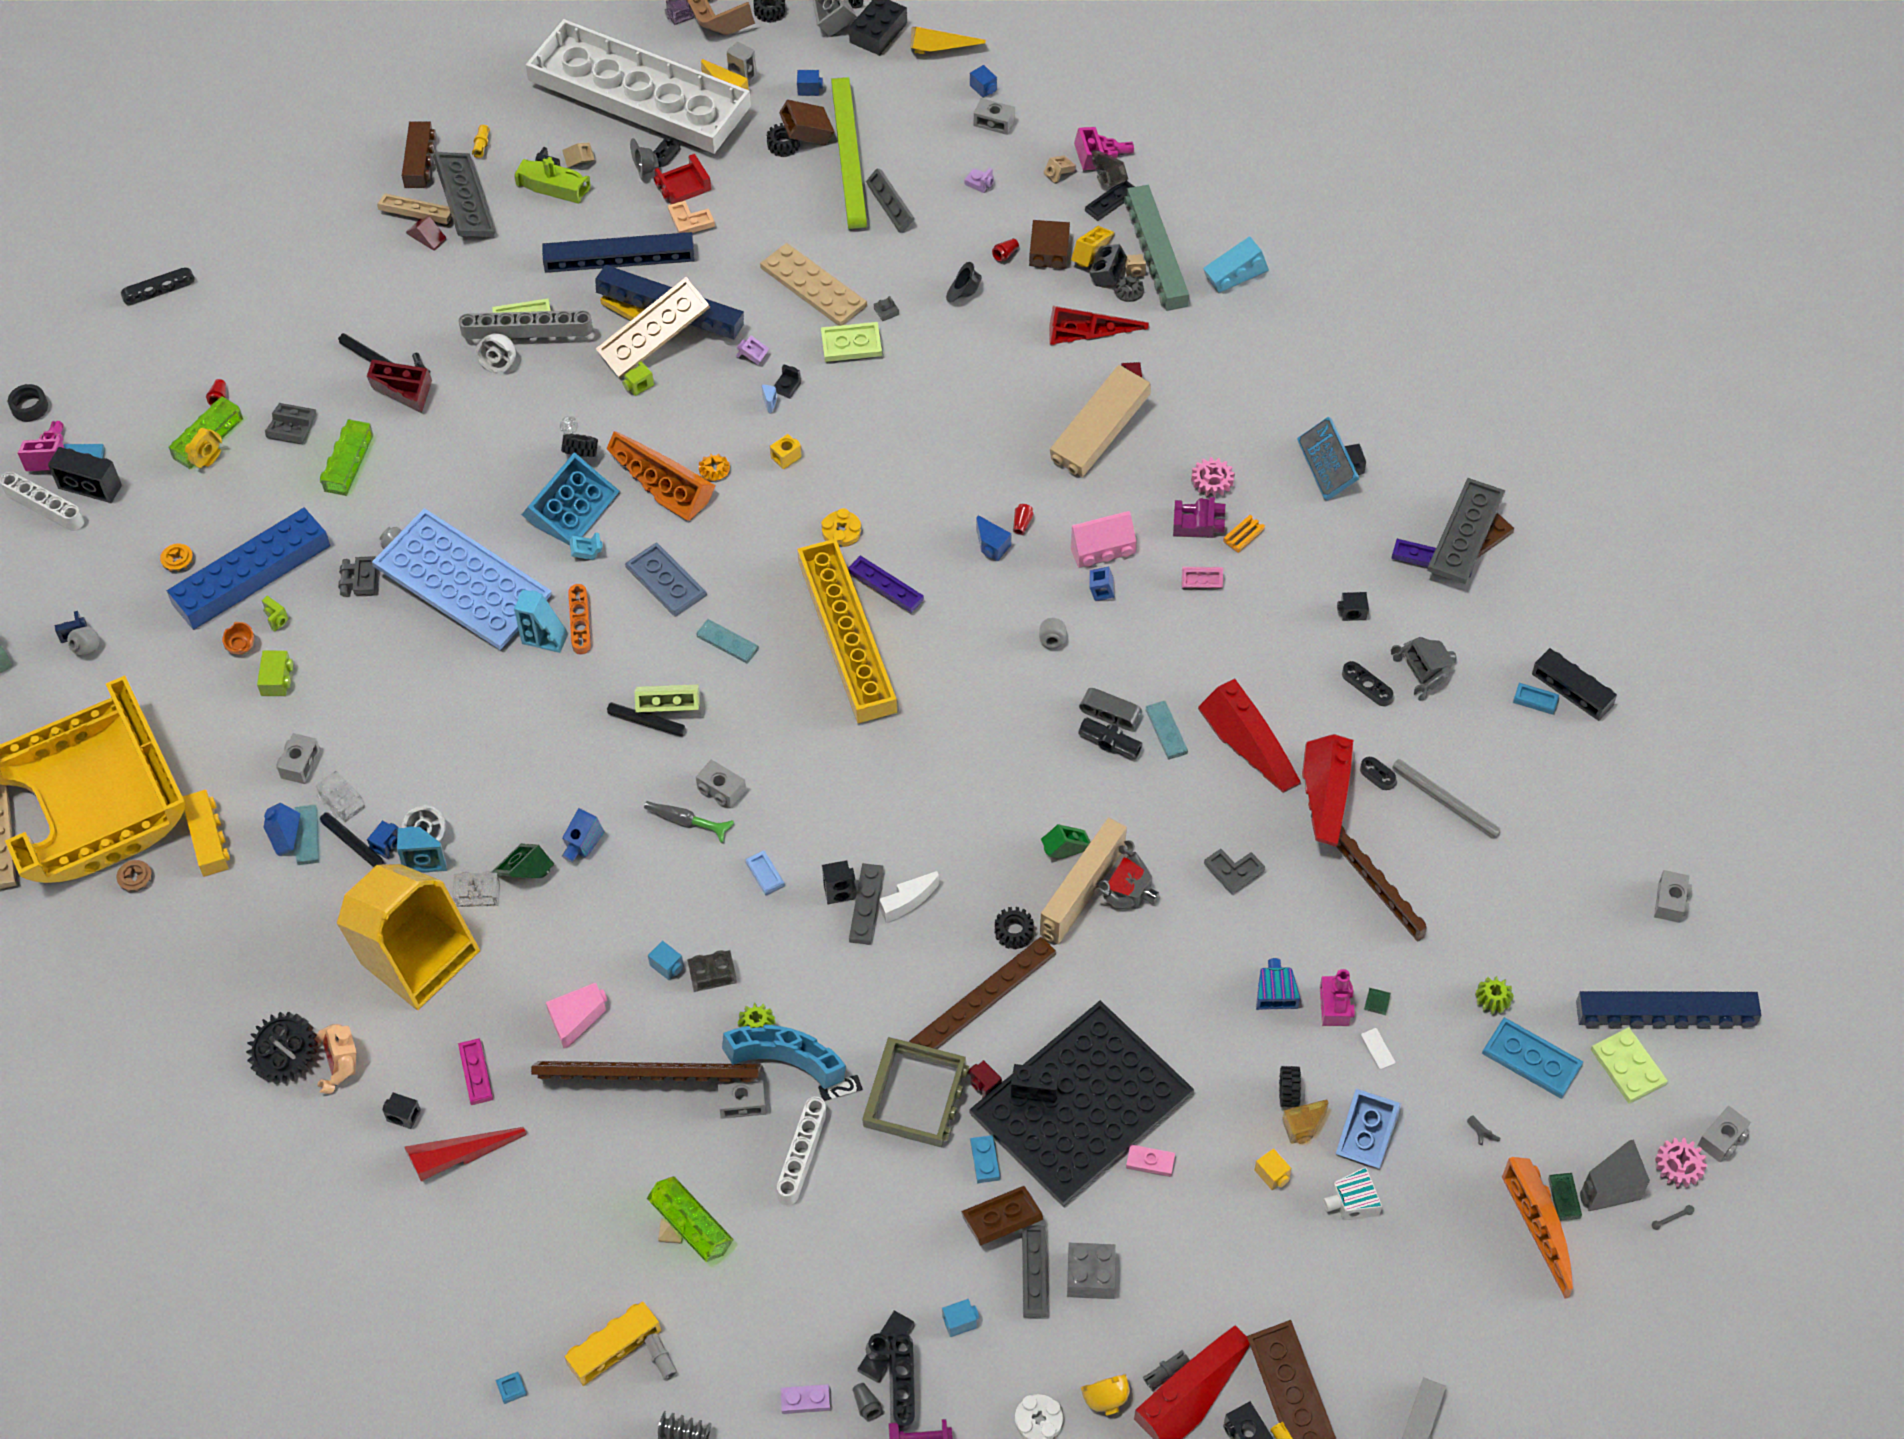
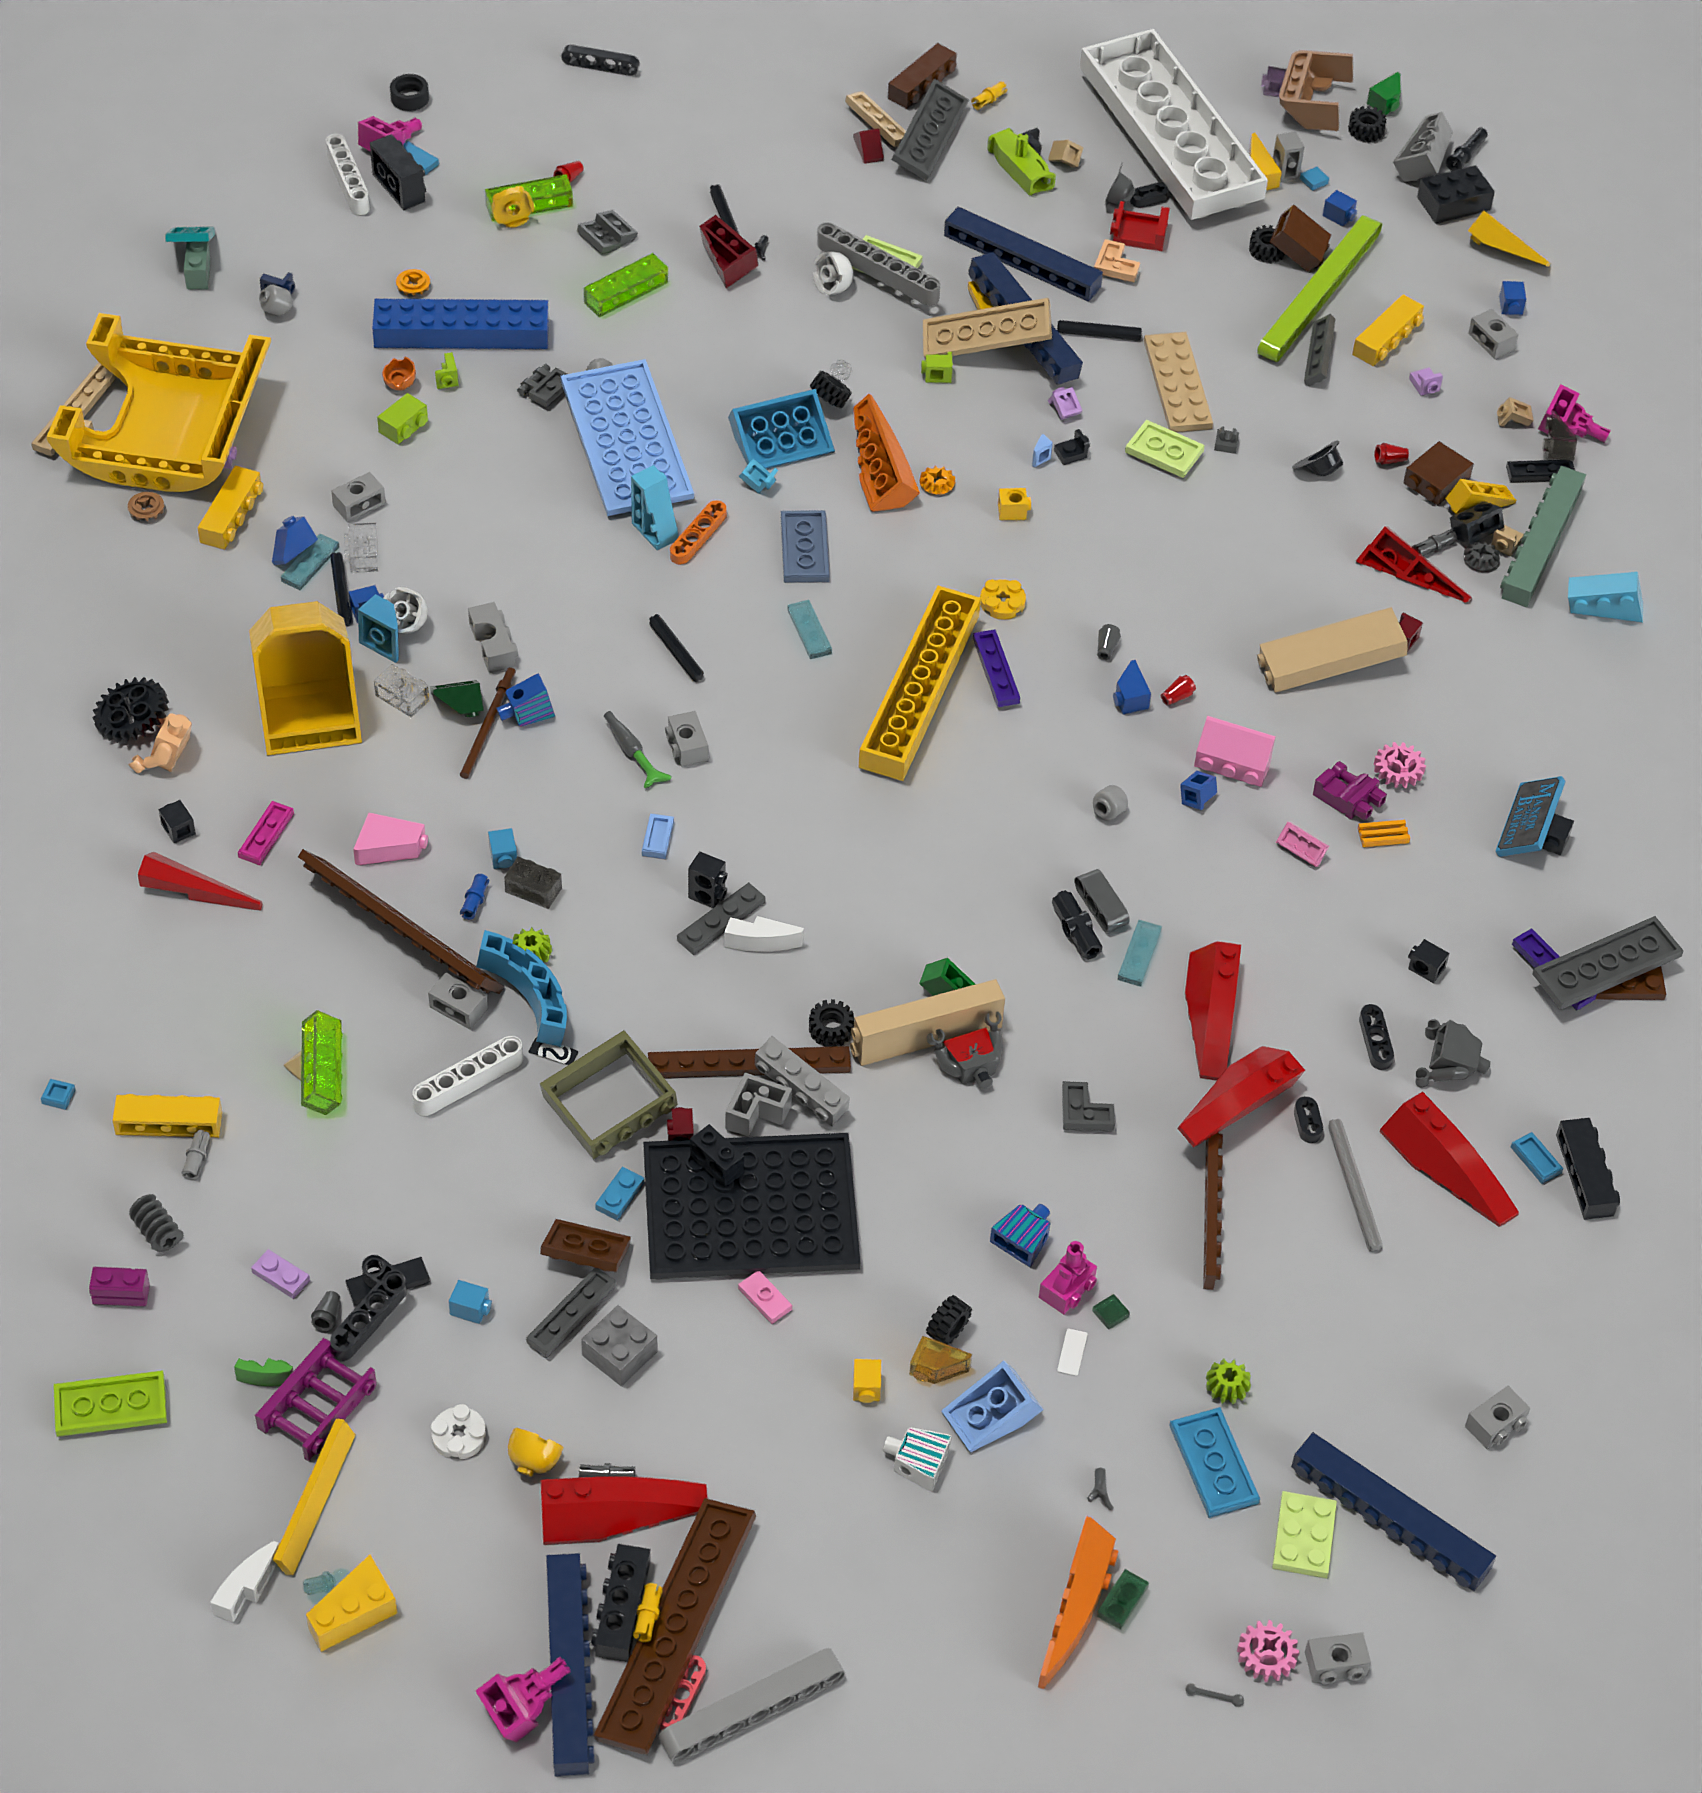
camera: 35 degrees right, 5 degrees down
(492, 791) = (489, 622): none -> light grey arch
(549, 838) = (501, 688): none -> reddish brown bar
(667, 698) = (707, 639): yellowish green brick -> none
(678, 1011) = (474, 896): none -> blue pin
(727, 277) = (1099, 330): none -> black axle
(768, 69) = (1314, 178): none -> dark azure tile
(923, 155) = (1388, 330): none -> yellow brick
(942, 512) = (1107, 640): none -> dark grey cone
(1019, 1021) = (755, 1099): none -> light grey brick
(1038, 985) = (806, 1083): none -> light grey brick
(1091, 297) = (1436, 542): none -> dark grey pin
(1477, 735) = (1439, 1149): none -> red wedge
(1616, 1179) = (1180, 1614): dark grey slope -> none

